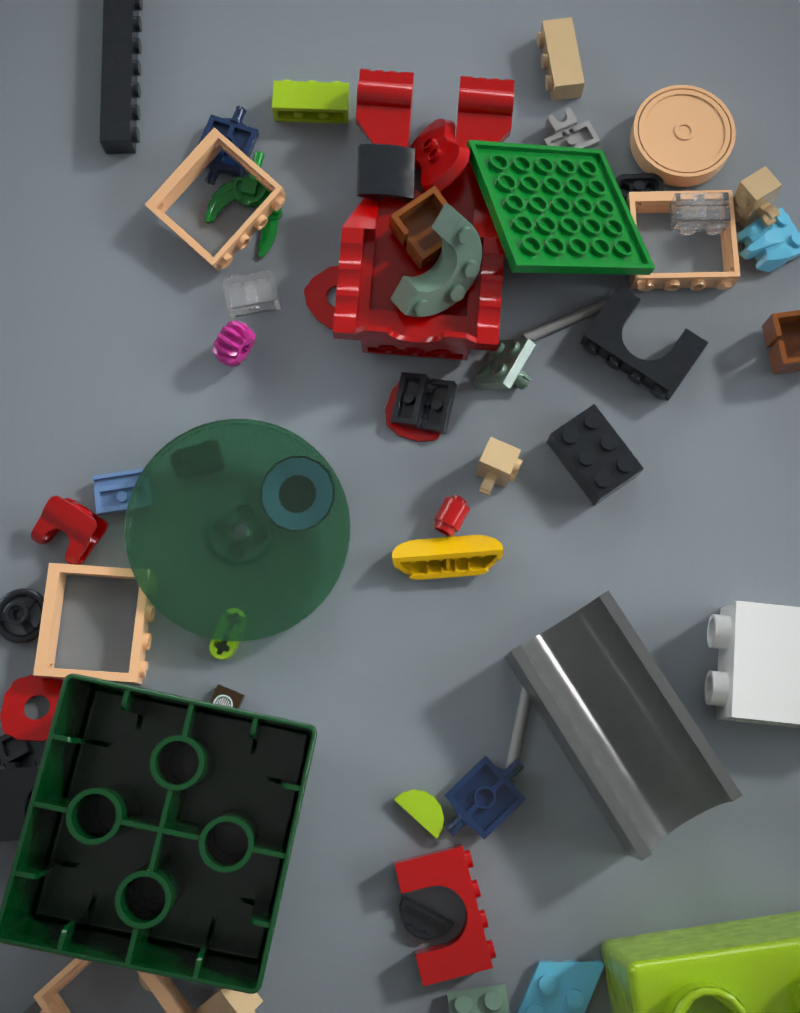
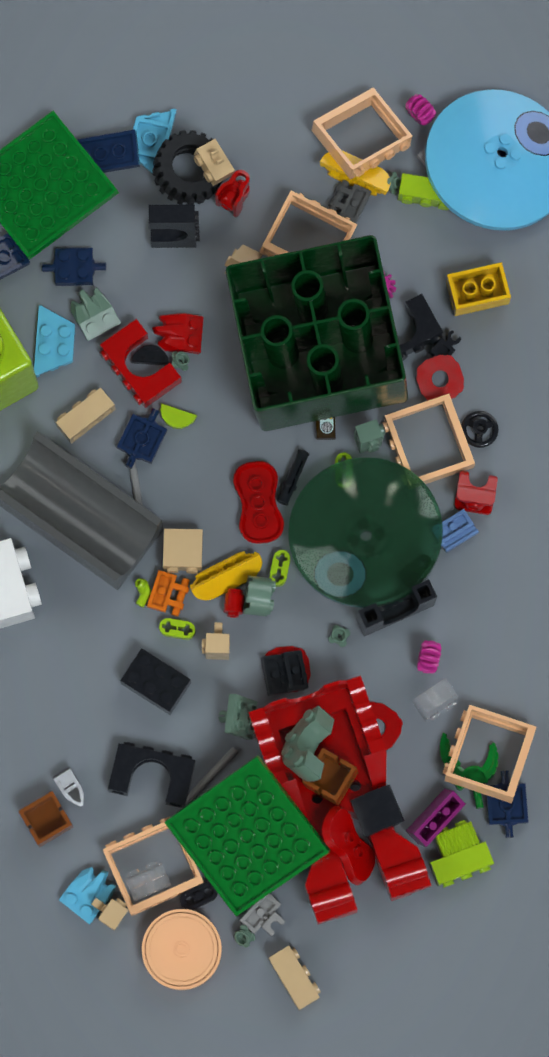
camera: 155 degrees right, 0 degrees up
(170, 660) = (369, 436): none -> sand green brick
(283, 409) = (376, 618): none -> black arch
(300, 653) = (292, 478): none -> black pin
(304, 129) = (456, 839): none -> lime brick
(317, 158) = (435, 817): none -> magenta brick
(329, 415) = (339, 631): none -> sand green plate
(355, 659) = (260, 516): none -> red plate
(366, 534) = (284, 569): none -> lime beam
(366, 937) = (180, 333): none -> red plate
(376, 893) = (183, 357): none -> sand green plate
(415, 506) = (258, 596): none -> sand green brick
(492, 611) = (183, 550): none -> tan brick
(538, 571) = (162, 592): none -> orange plate
(542, 509) = (176, 633): none -> lime beam
(552, 867) = (85, 415): none -> tan brick
(562, 582) = (144, 591): none -> lime arm
(601, 123) = (244, 936): none -> sand green plate
(751, 374) = (70, 786): none -> plate

